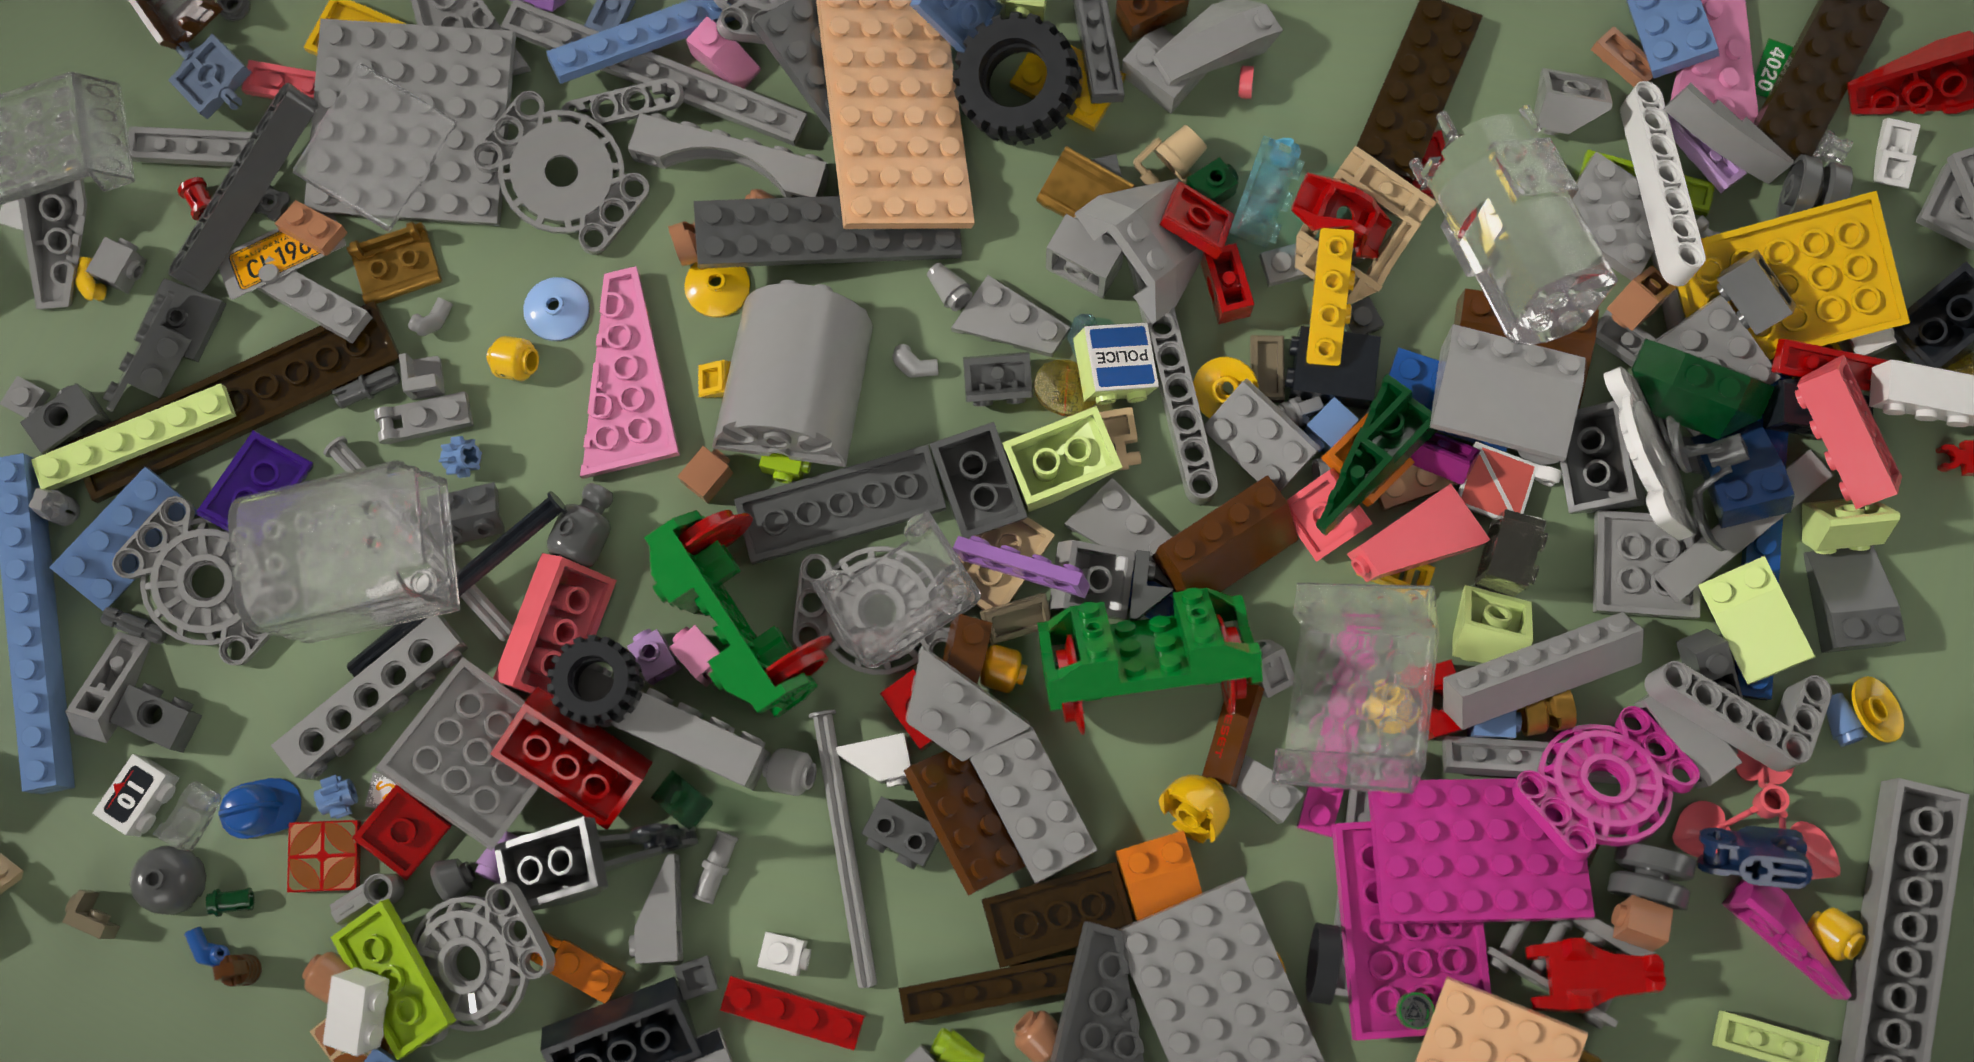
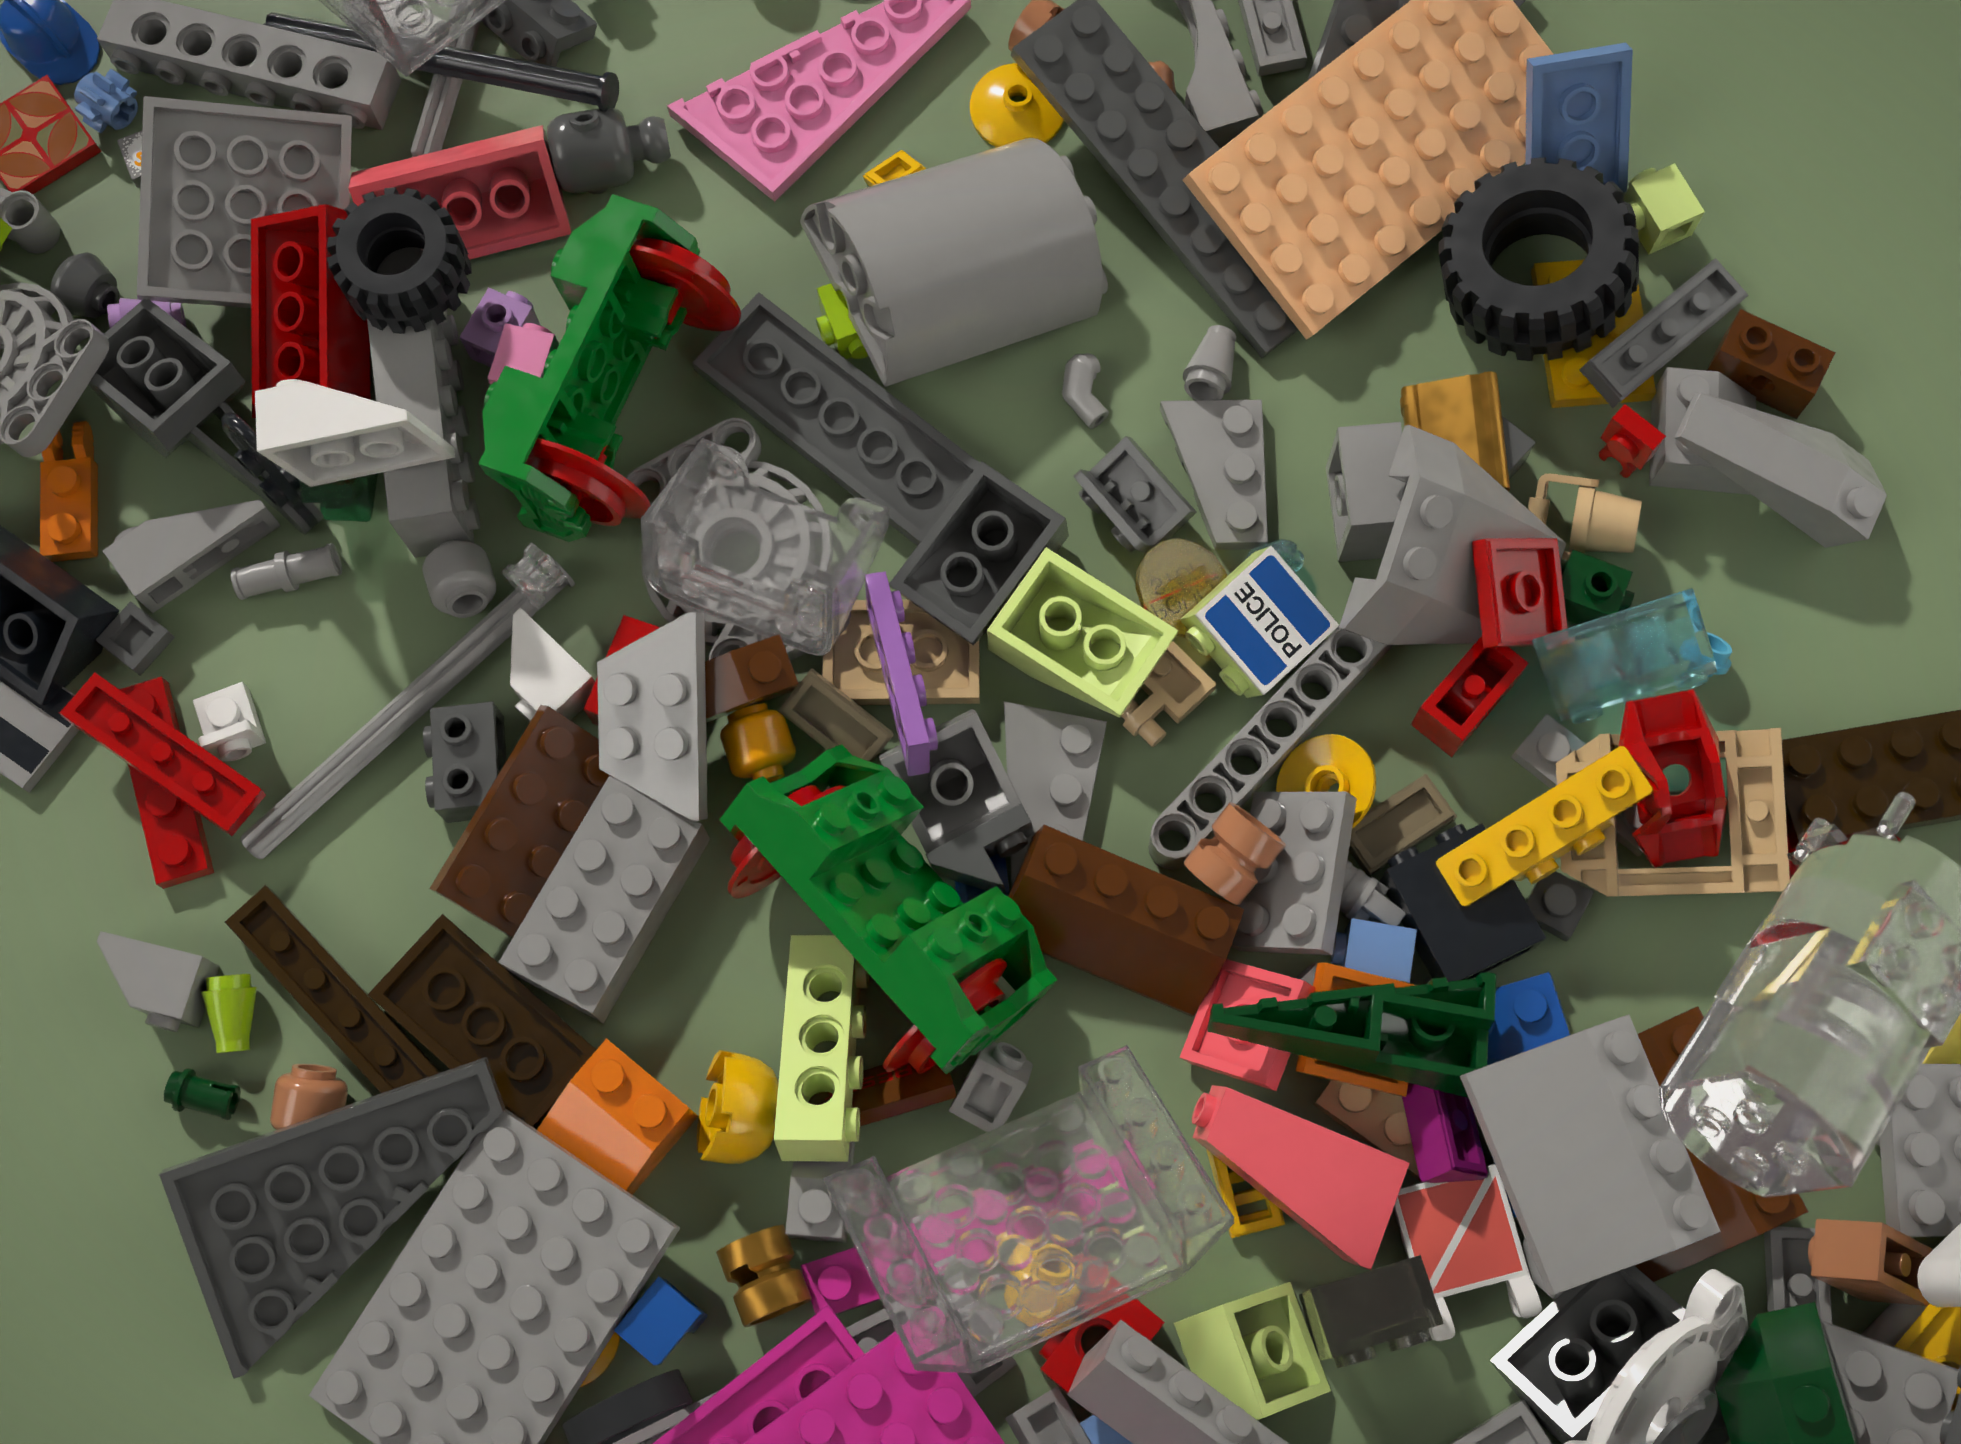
camera: 55 degrees right, 5 degrees down
(402, 832) = (100, 198): red tile -> none
(675, 787) = (338, 435): none -> white slope
(706, 473) = (768, 242): nougat brick -> none
(784, 999) = (163, 754): none -> red plate
(824, 727) = (534, 575): none -> clear wheel
(1149, 106) = (1630, 440): none -> red plate
(1235, 460) = (1234, 854): none -> nougat wheel
(1235, 776) = (822, 1130): none -> yellowish green brick
(1246, 82) = (1763, 545): coral tile -> none
(1282, 918) = (660, 1321): none -> blue panel
(1293, 849) = (763, 1275): none -> pearl gold wheel

